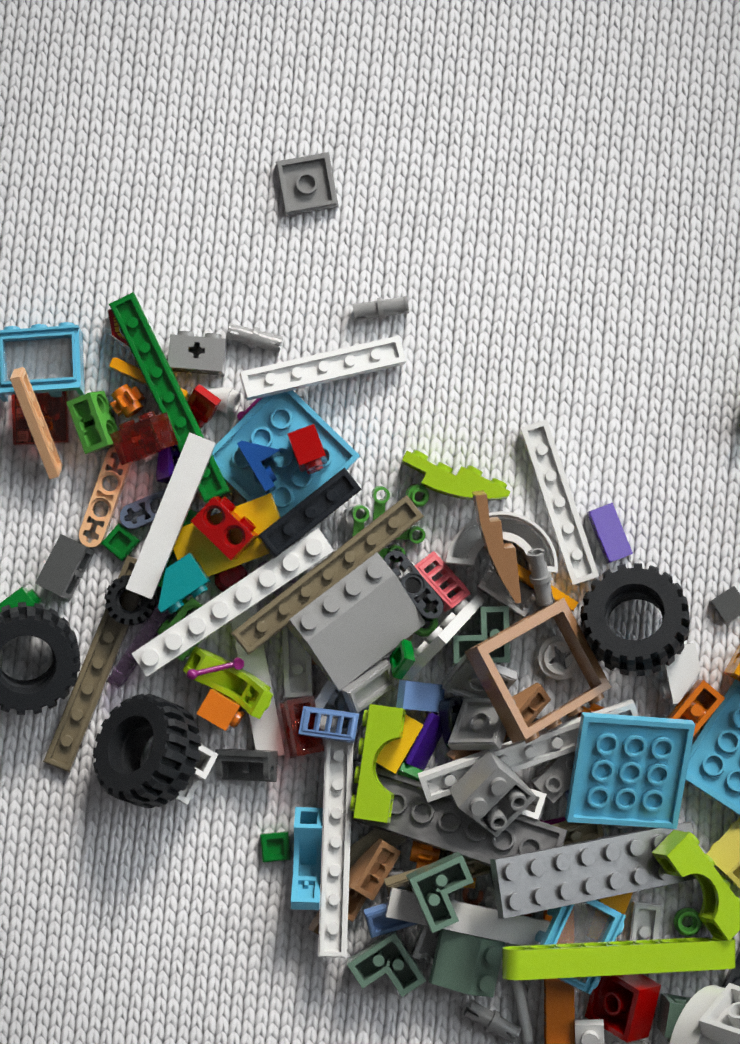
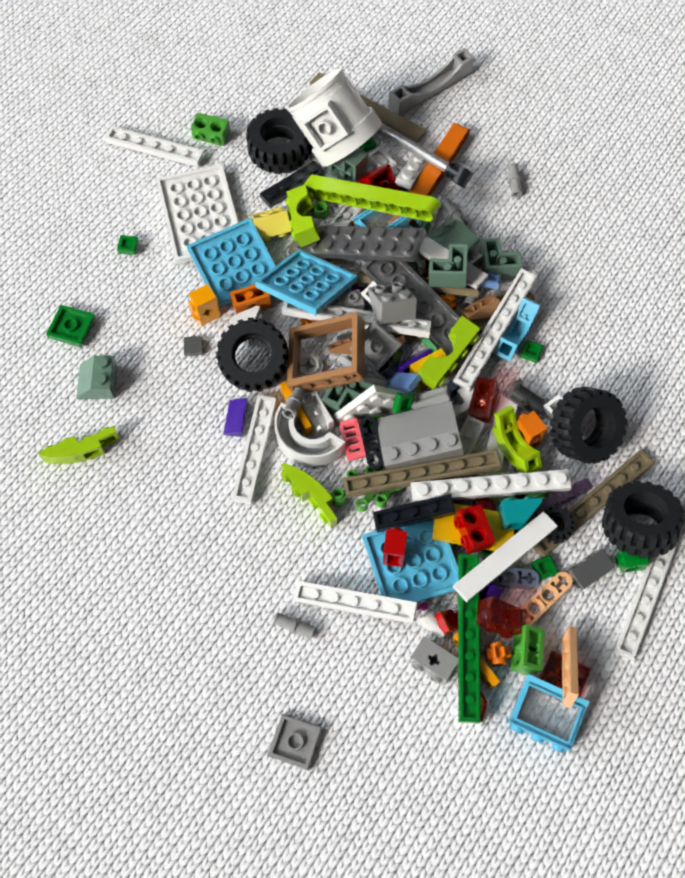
camera: 155 degrees left, 20 degrees down
(237, 663) = (505, 449): magenta hinge -> none
(254, 337) = (389, 652): light grey pin -> none
(257, 456) = (430, 563): blue slope -> none
(326, 734) = (471, 381): medium blue slope -> none
(501, 555) = (308, 428): medium nougat slope -> none

